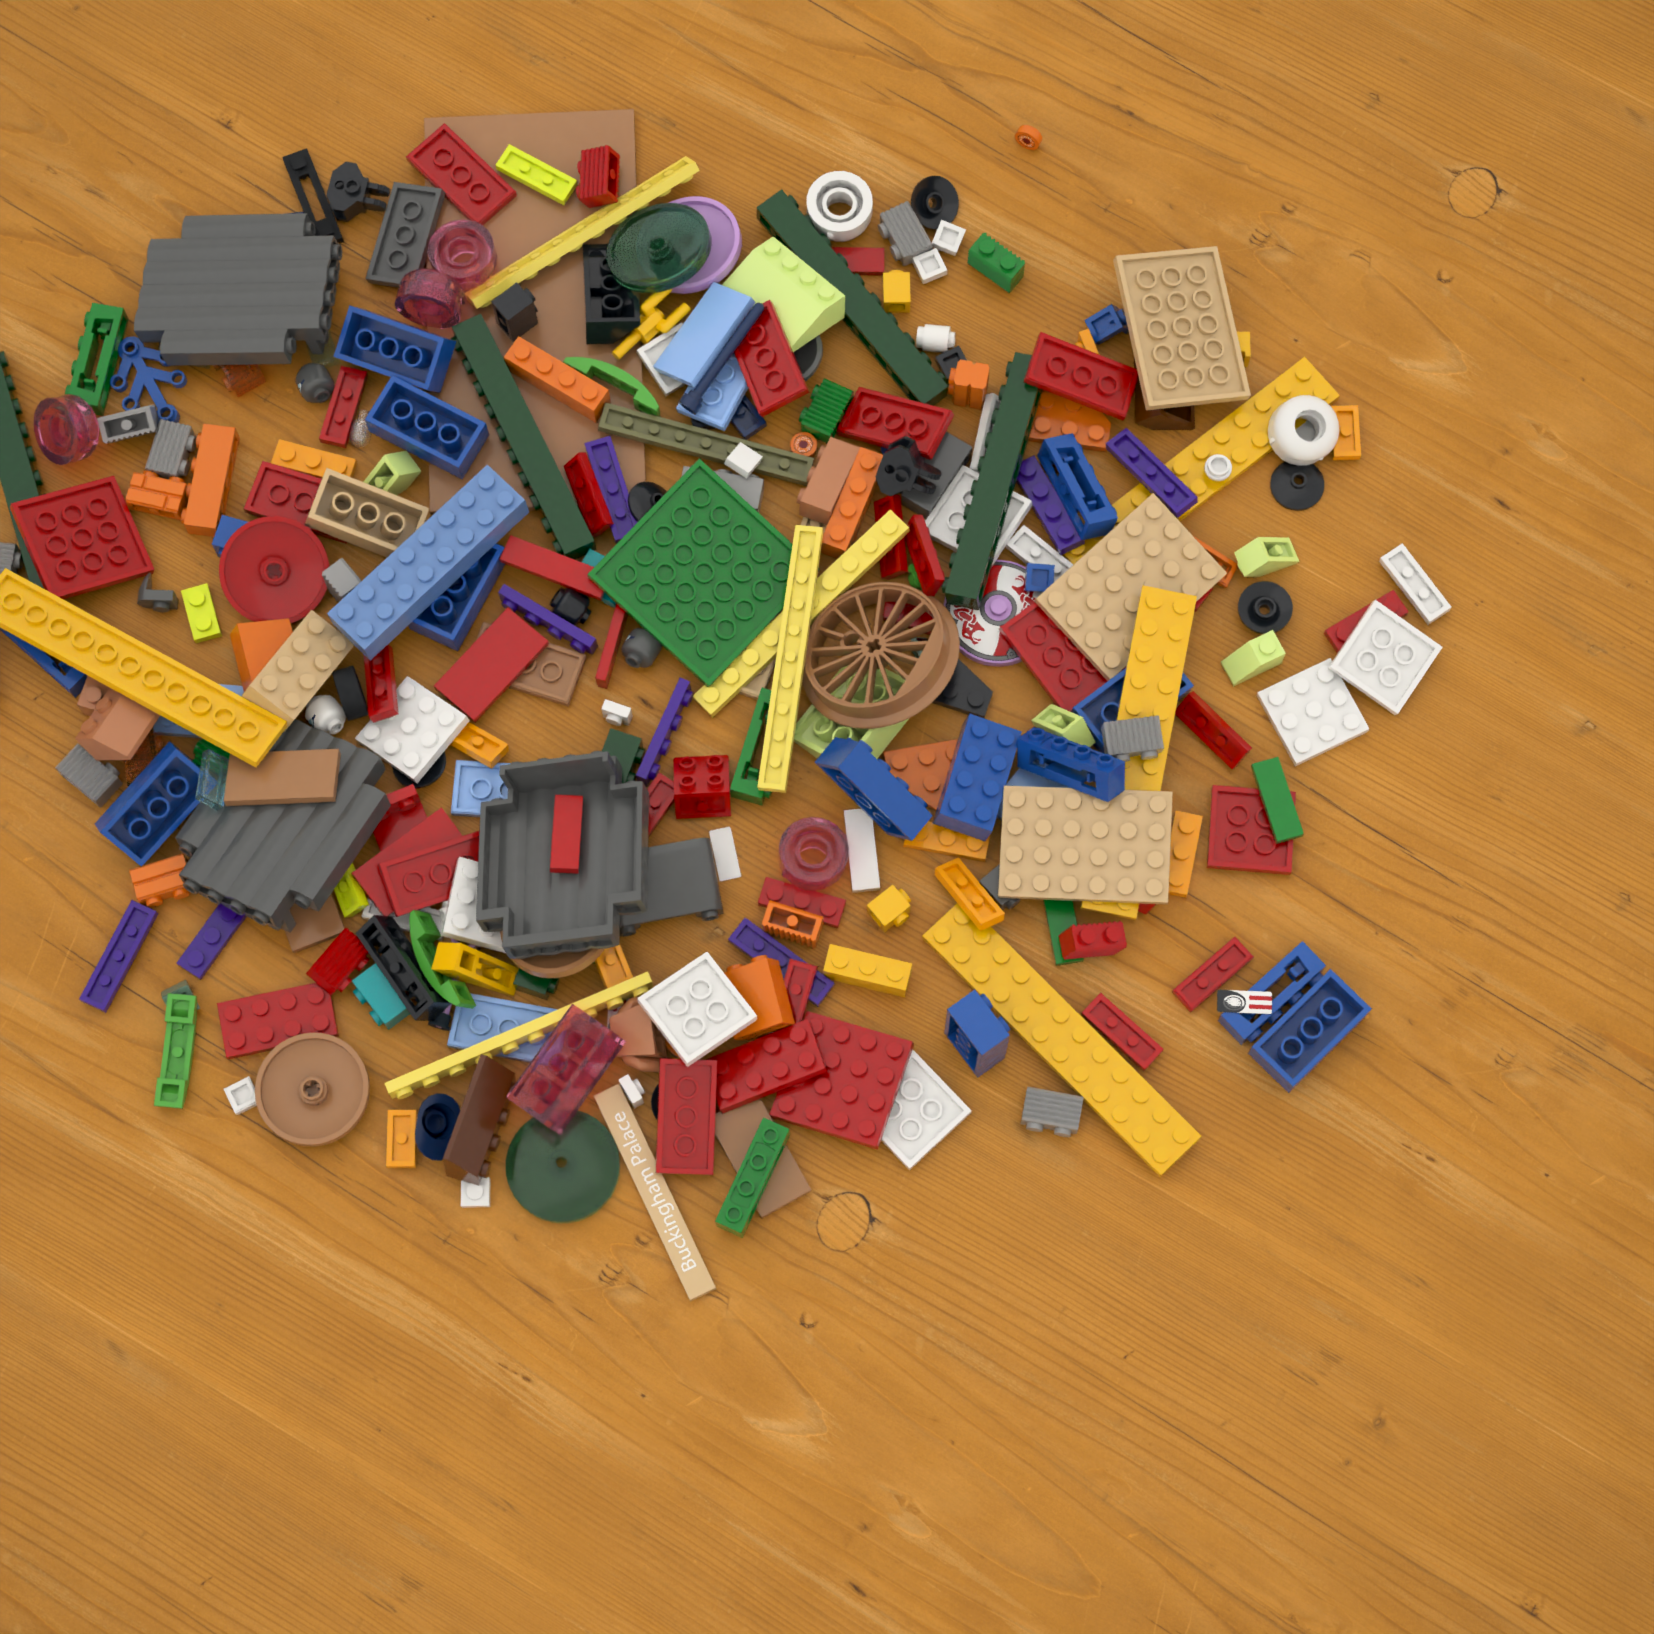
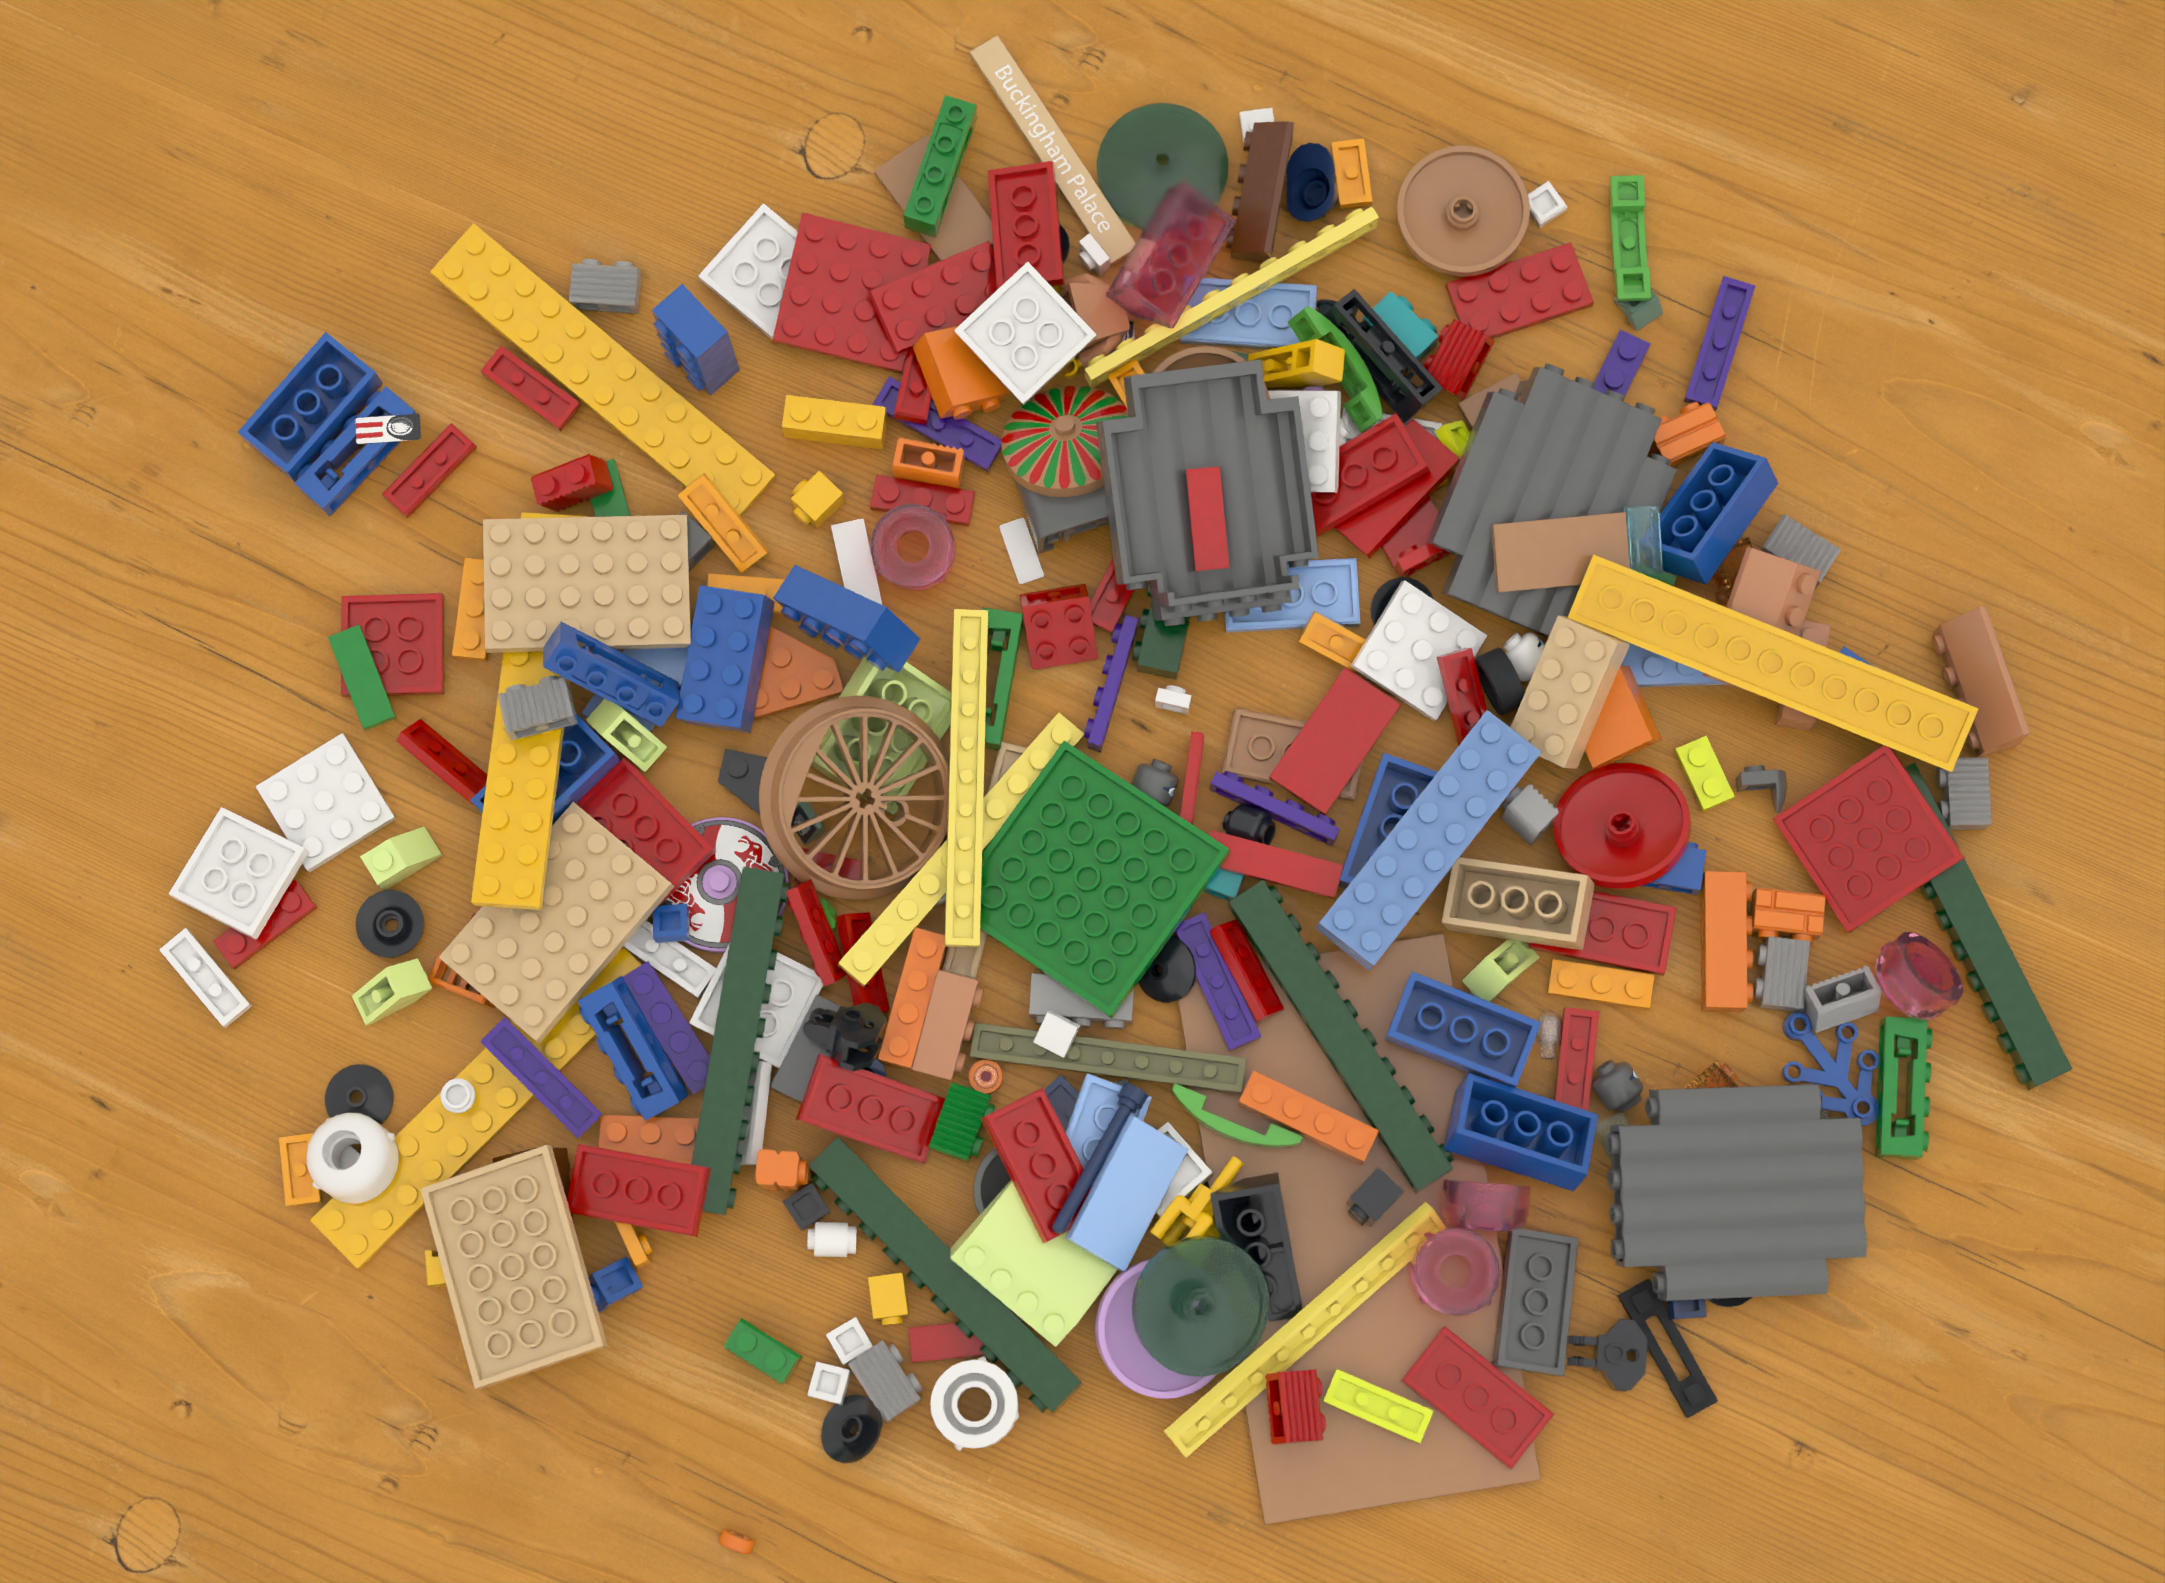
camera: 175 degrees right, 5 degrees up
(680, 925) = (1054, 440): none -> dish

